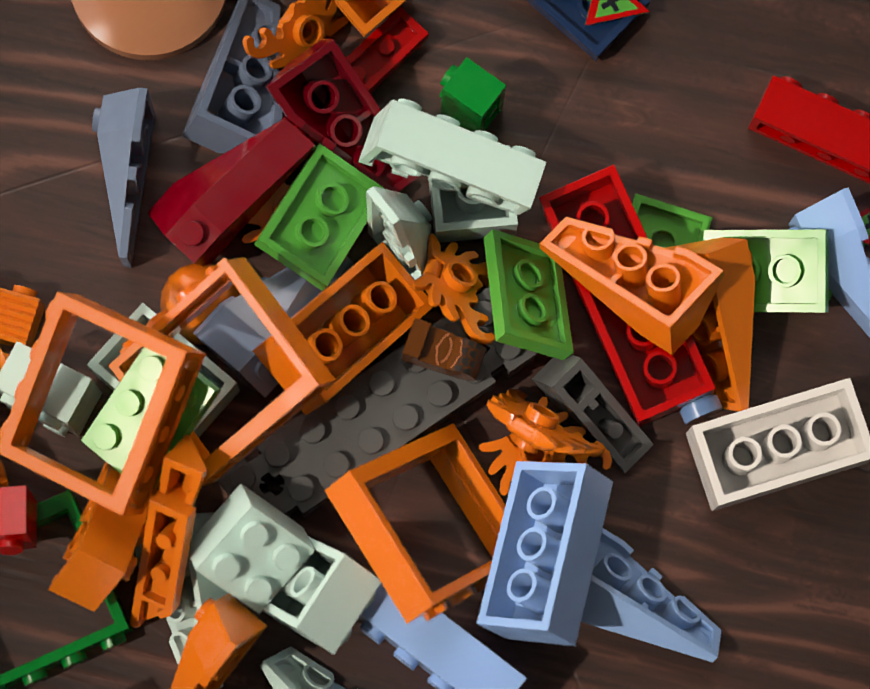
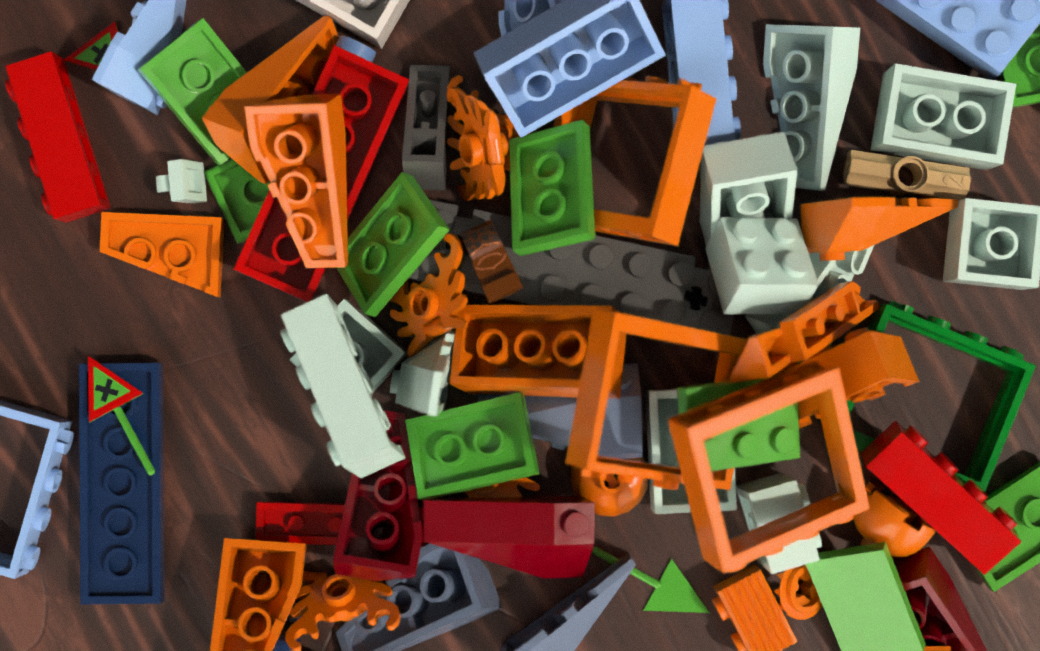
camera: 130 degrees left, 10 degrees up
(71, 272) = (671, 592): none -> bright green piece
(456, 447) = (551, 188): none -> bright green plate
(471, 95) = (277, 424): green brick -> none
(678, 143) = (170, 245): none -> orange wing
(716, 194) = (184, 181): none -> light aqua tile

